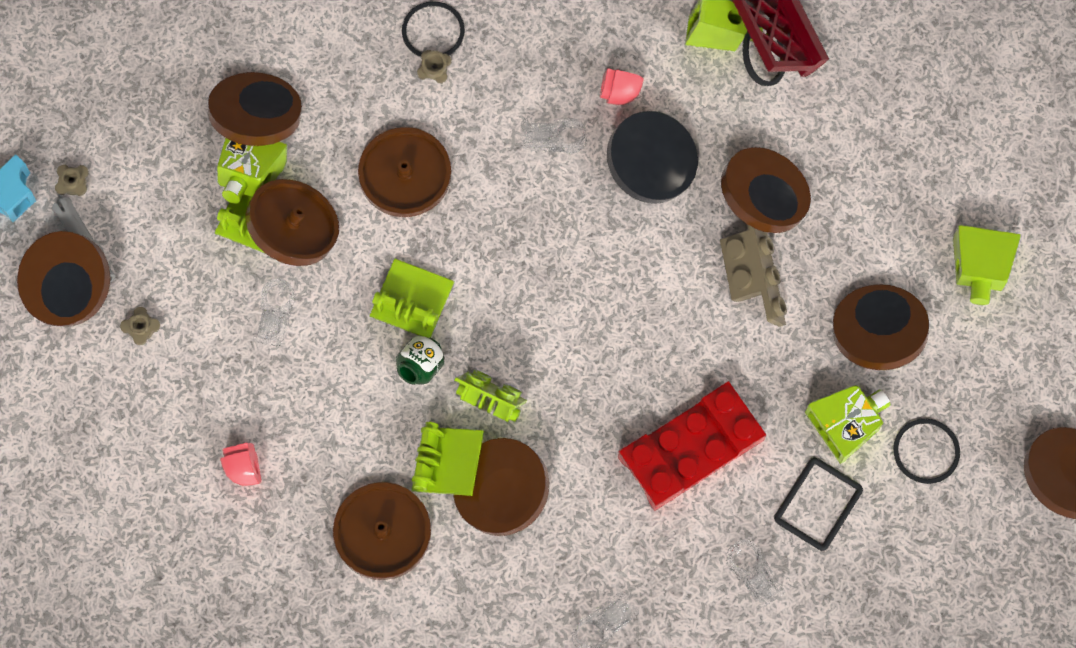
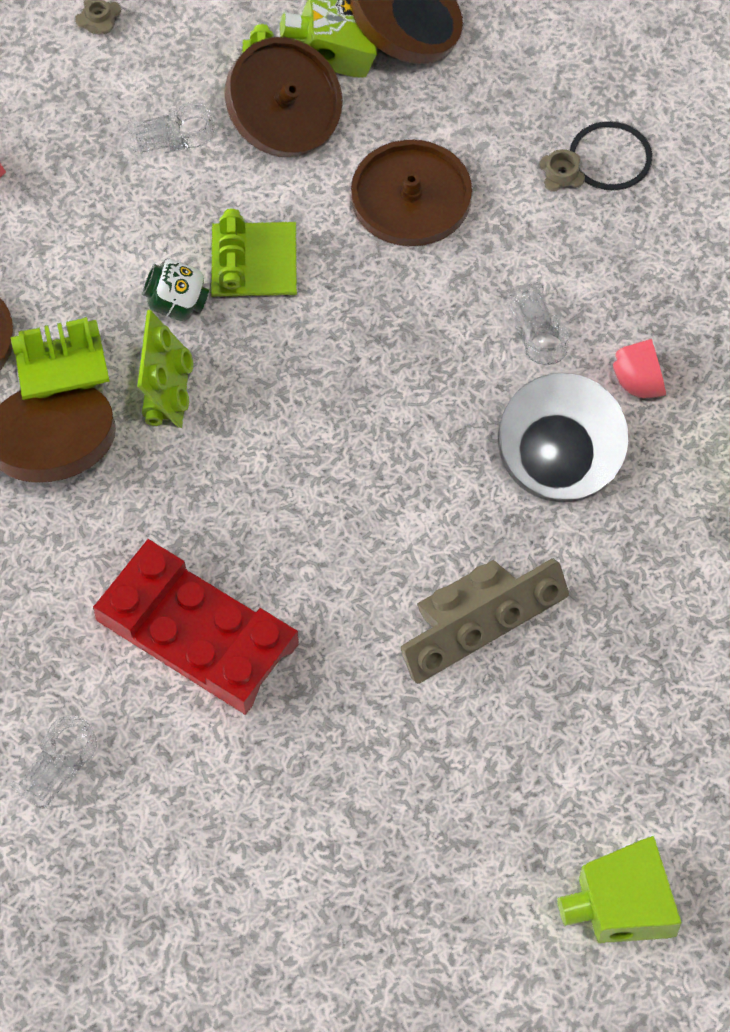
camera: 70 degrees right, 10 degrees down
(765, 190) = (583, 581): reddish brown piece -> none
(822, 547) = (181, 849): black piece -> none
(847, 419) = (311, 800): lime torso -> none
(880, 327) = (461, 793): reddish brown piece -> none
(910, 475) = (324, 967): black piece -> none

